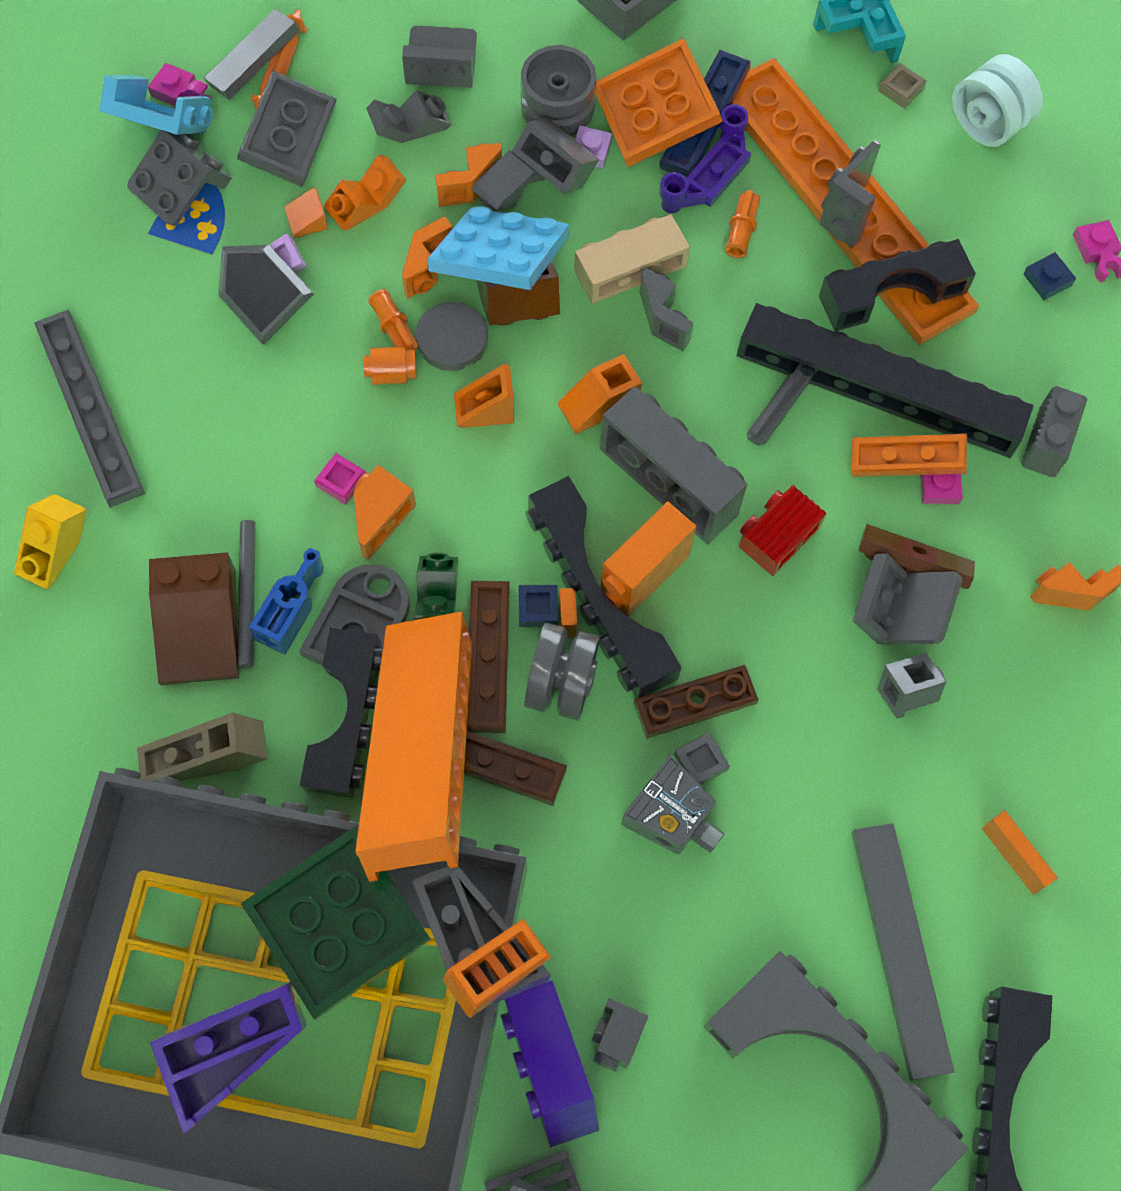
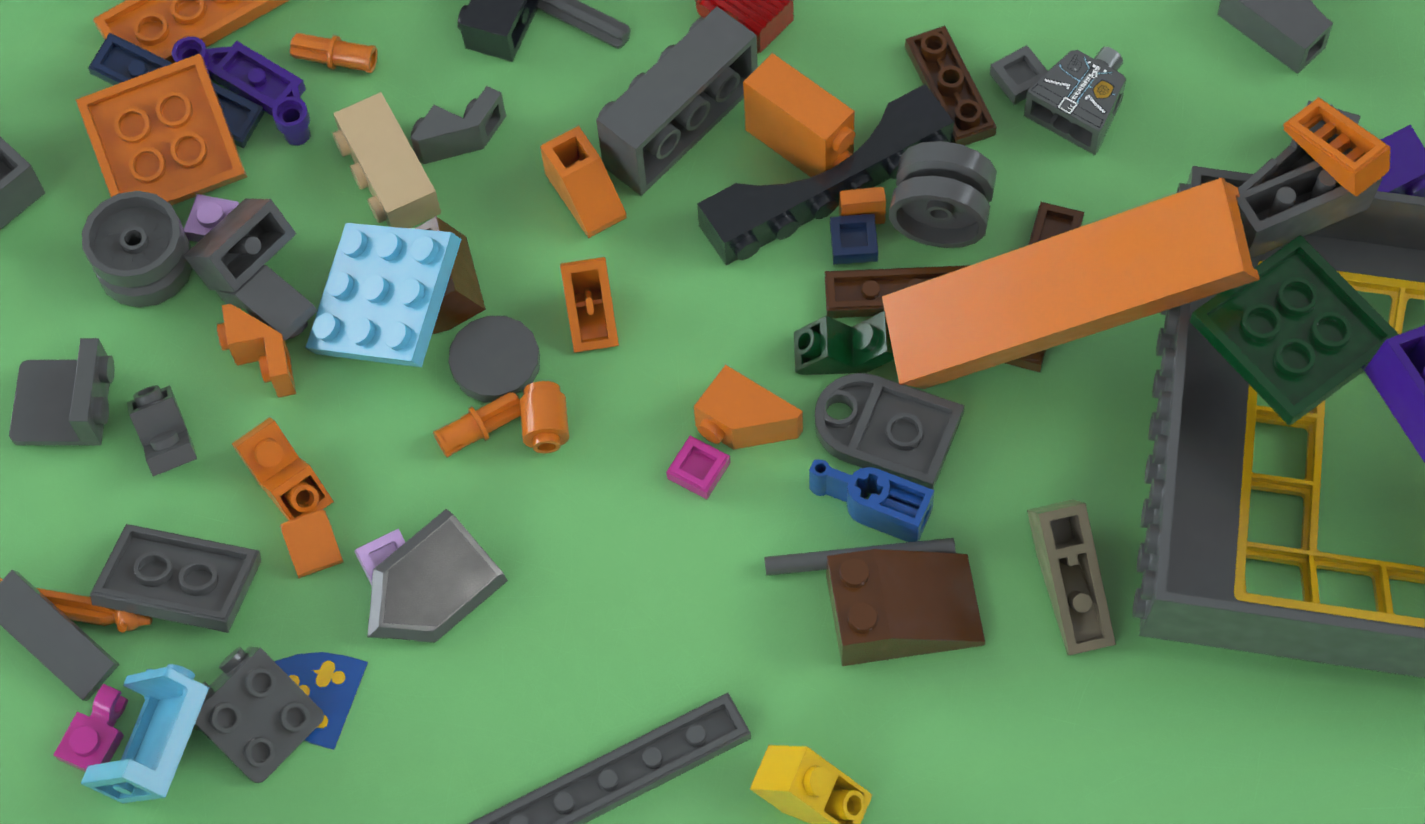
camera: 85 degrees left, 5 degrees down
(334, 763) = (1067, 425): black arch -> none
(415, 274) = (392, 397): orange slope -> none

